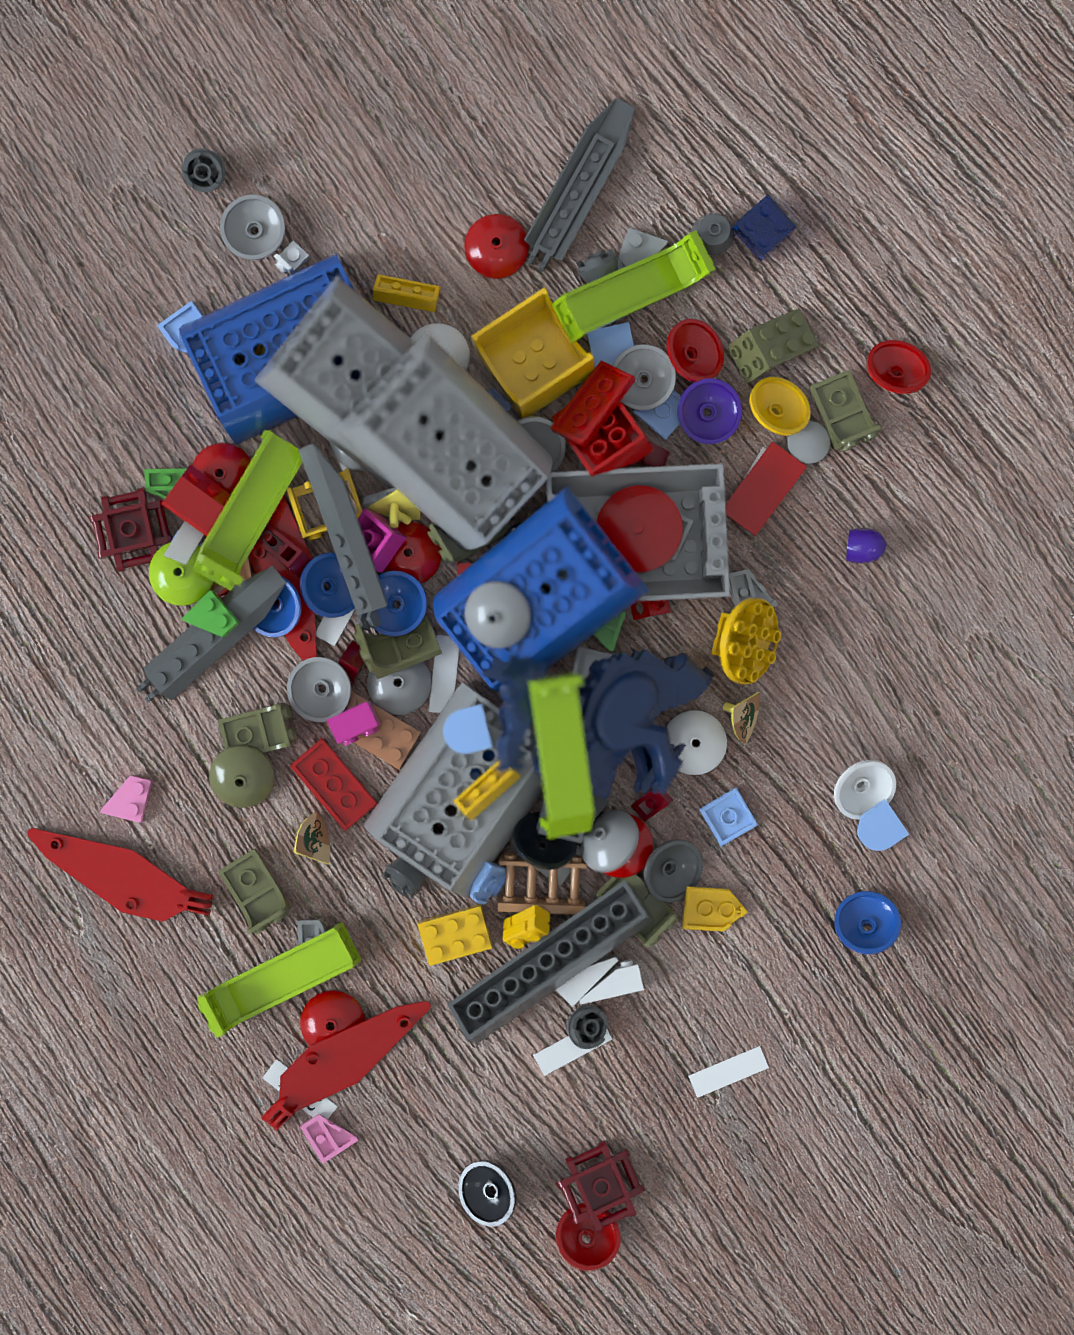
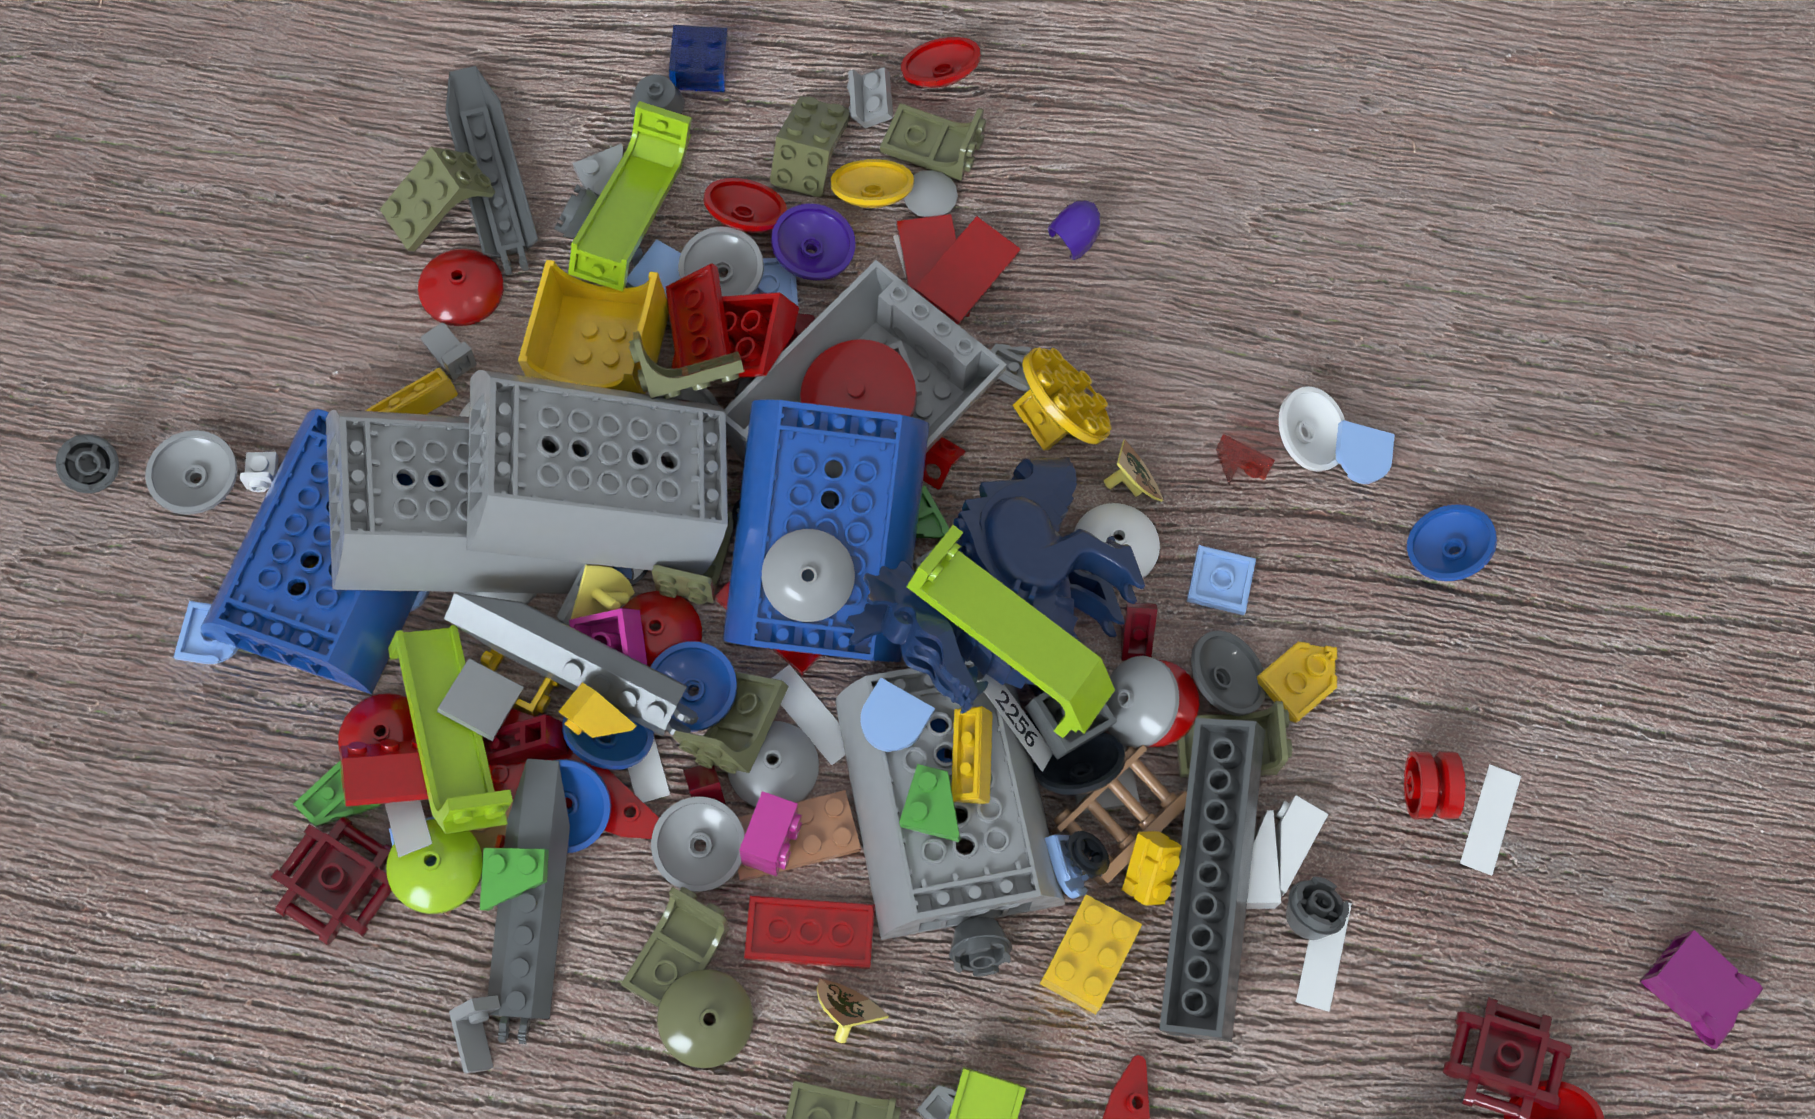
camera: 55 degrees left, 20 degrees down
(125, 674) = (470, 1033): none -> light grey bracket
(280, 508) = (480, 699): none -> light grey tile
(326, 575) = (593, 714): none -> yellow slope
(440, 793) = (931, 804): none -> bright green wing
(452, 281) = (451, 354): none -> light grey bracket
(507, 885) = (1091, 847): none -> black gear
(531, 794) = (1018, 722): none -> white sticker
(532, 176) = (431, 191): none -> olive bracket
(536, 432) = (670, 381): none -> olive bracket
(712, 1030) = (1434, 785): none -> red wheel
(735, 1252) = (1701, 987): none -> magenta piece
(778, 510) = (967, 270): none -> red tile
(808, 760) = (1237, 455): none -> clear red slope
(836, 348) = (870, 97): none -> light grey bracket

